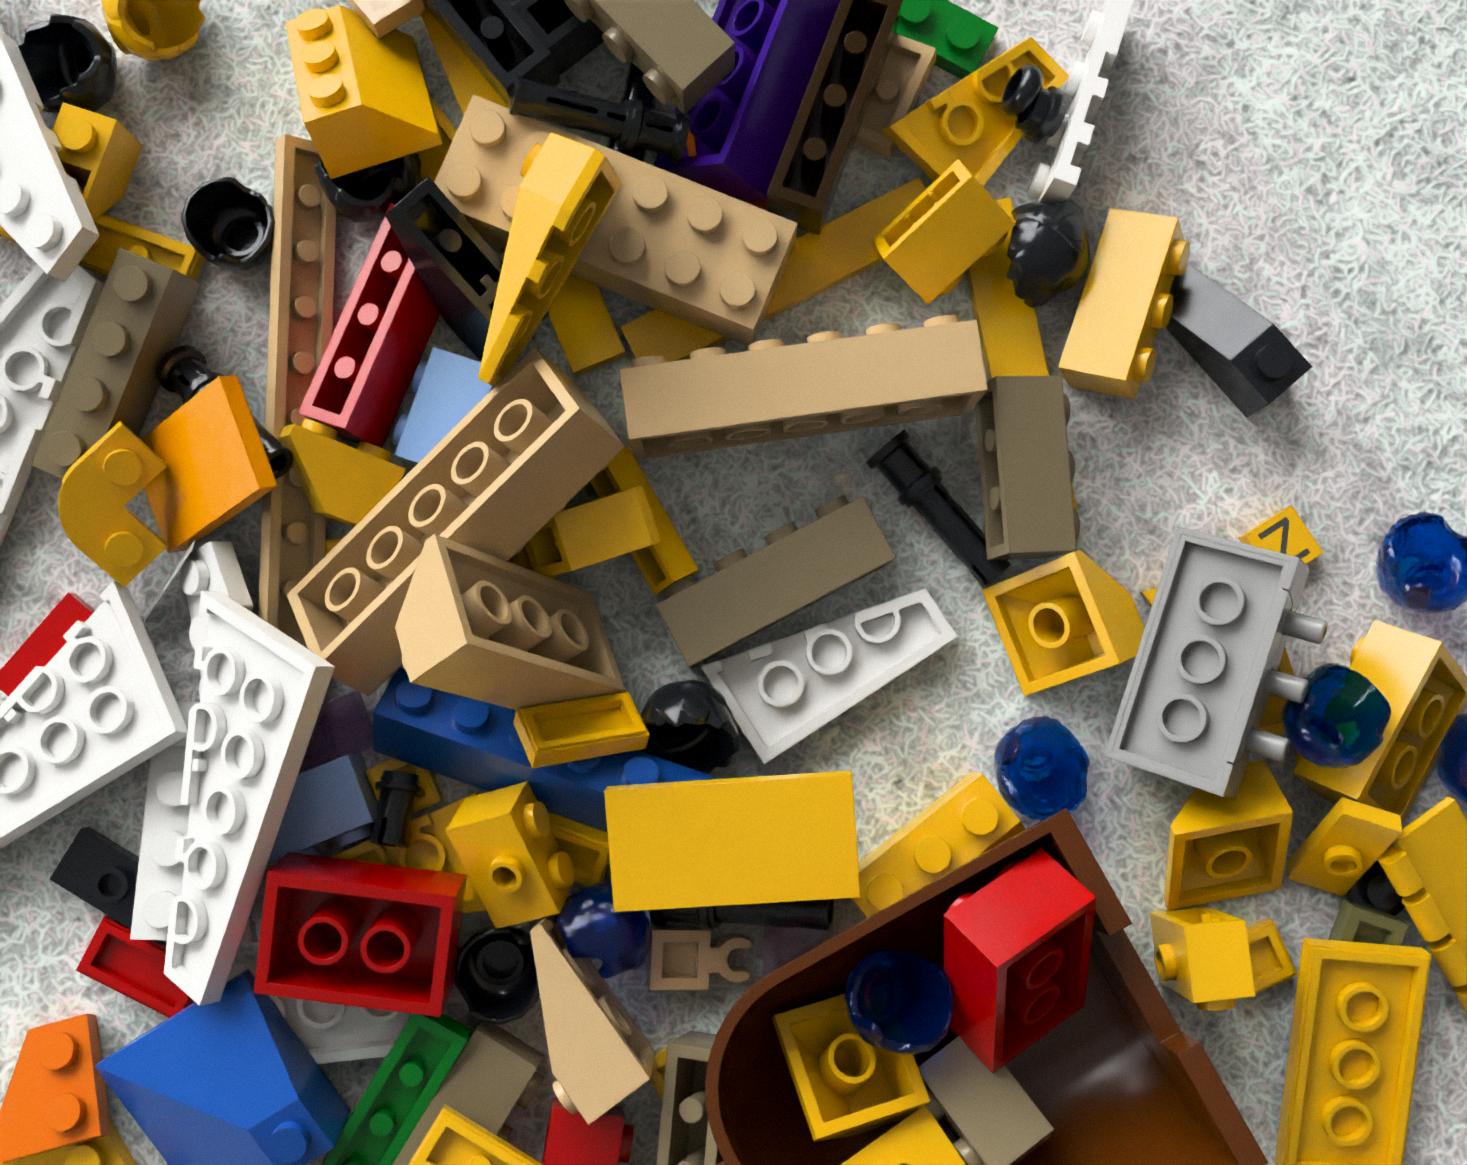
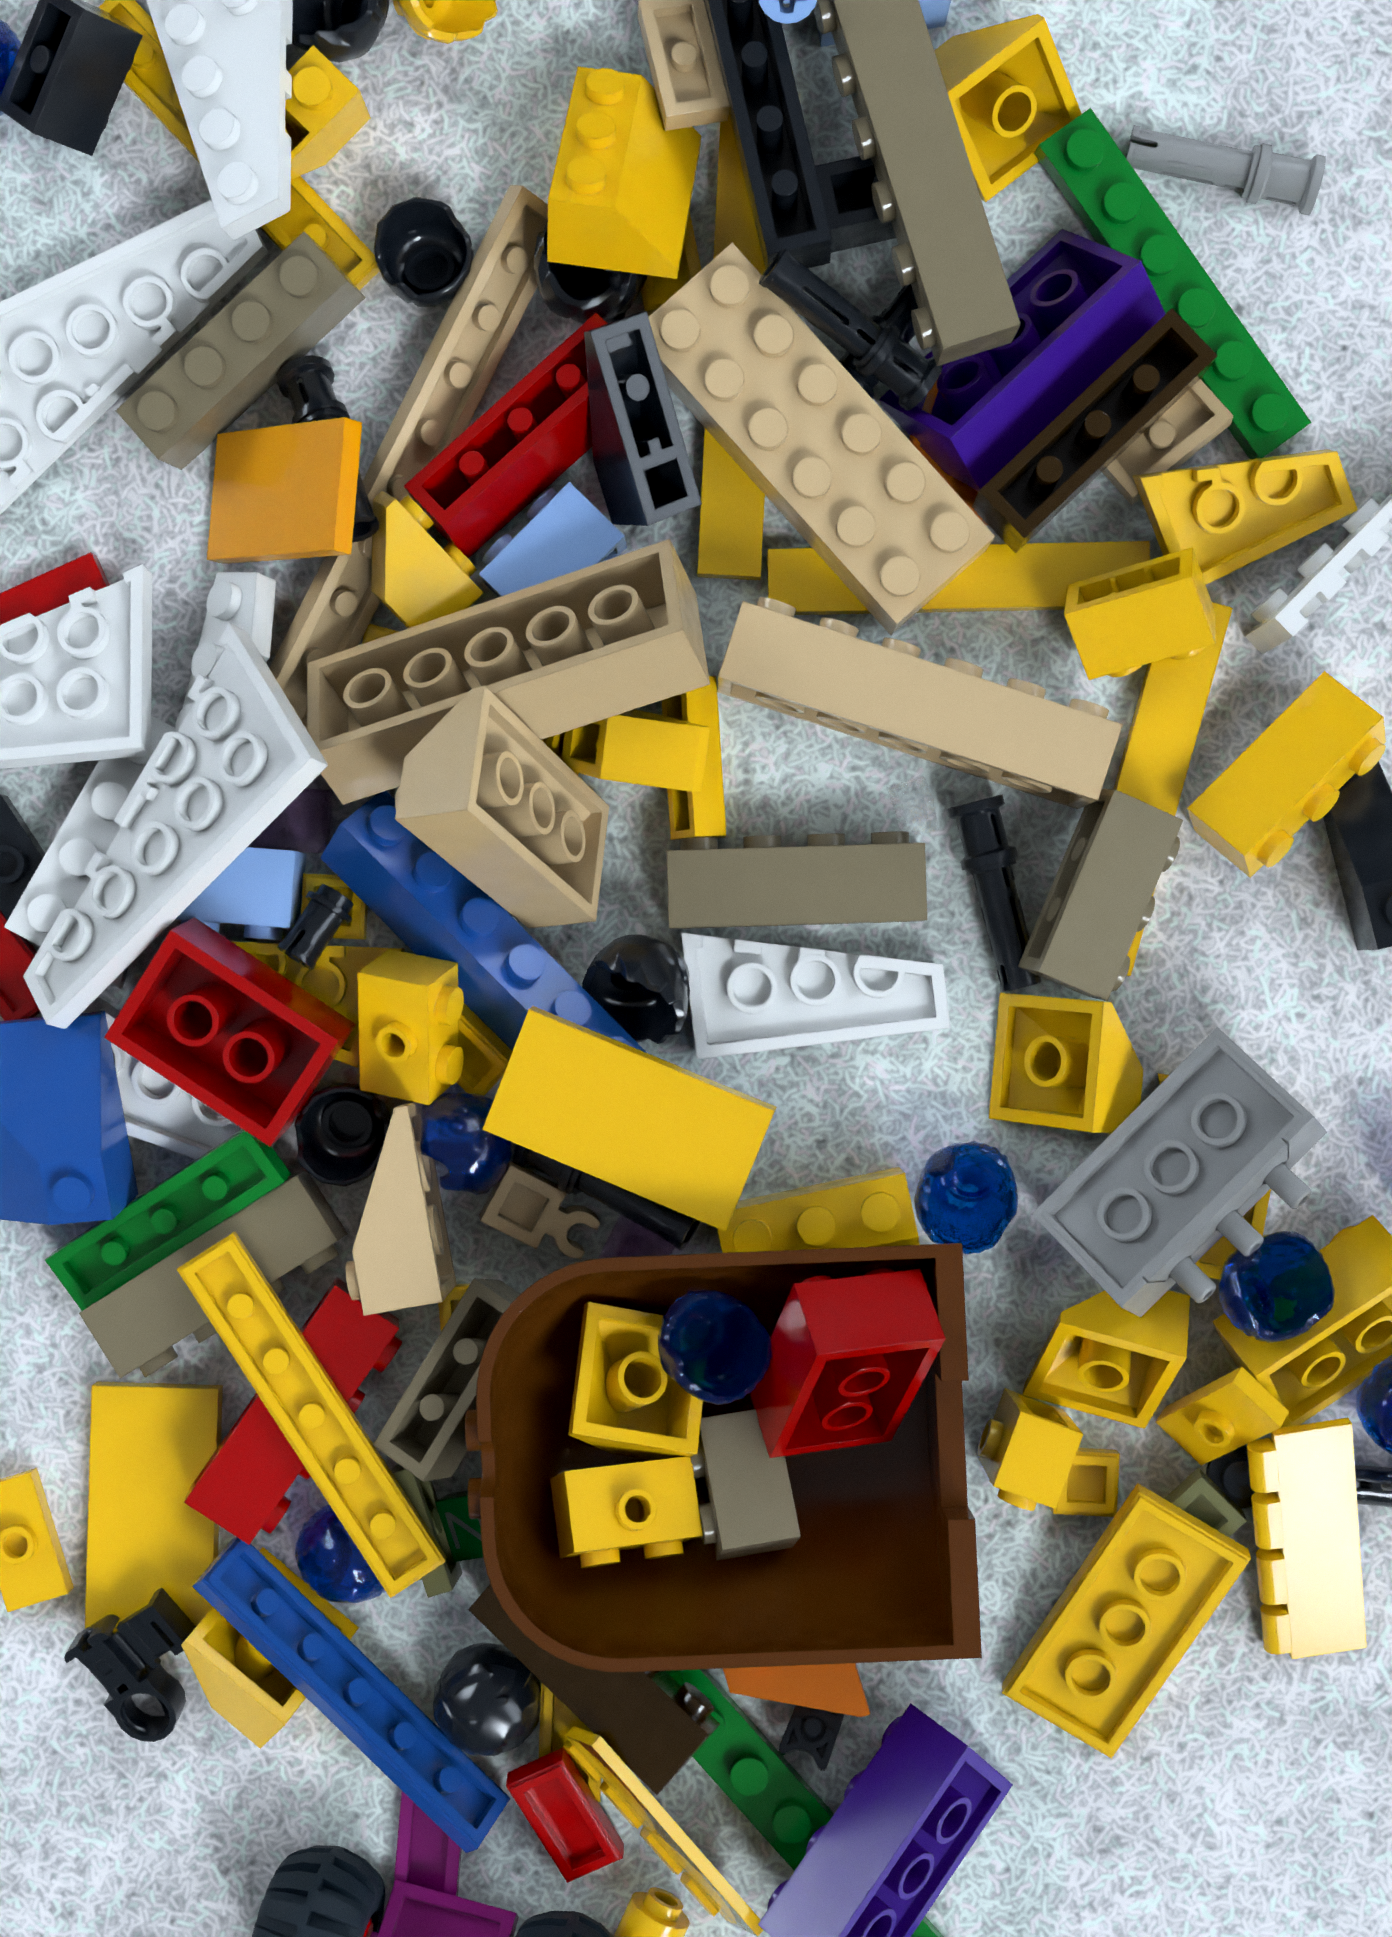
camera: 25 degrees right, 5 degrees up
(95, 501) = (162, 479): yellow plate -> none
(168, 582) = (195, 590): white sticker -> none
(552, 221) = (744, 424): yellow wedge -> none
(580, 729) = (534, 938): yellow tile -> none
(1022, 90) = (1295, 506): black piece -> none
(1044, 116) = (1304, 538): black plate -> none
(1047, 250) = (1236, 683): black hair -> none
(1284, 534) = (1326, 1091): yellow tile -> none

